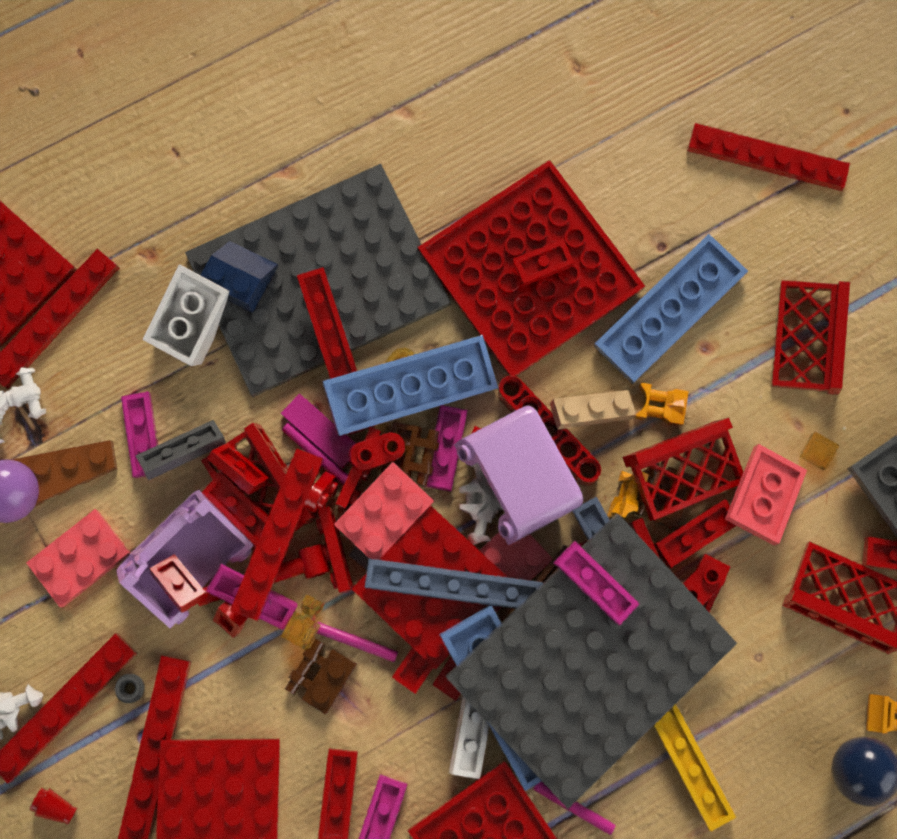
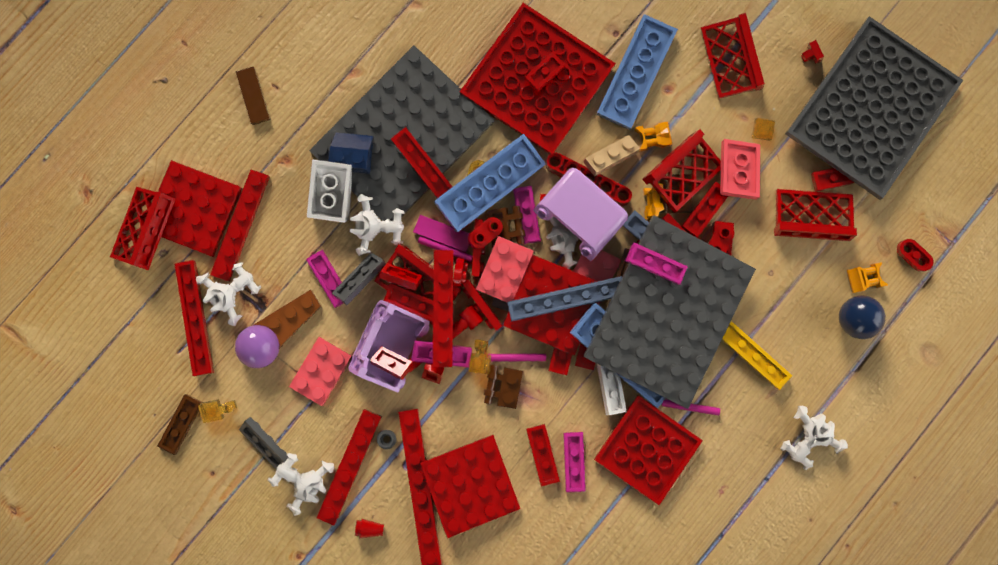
camera: 15 degrees left, 5 degrees up
(140, 153) = (253, 95): none -> reddish brown tile
(224, 382) = (369, 225): none -> white piece

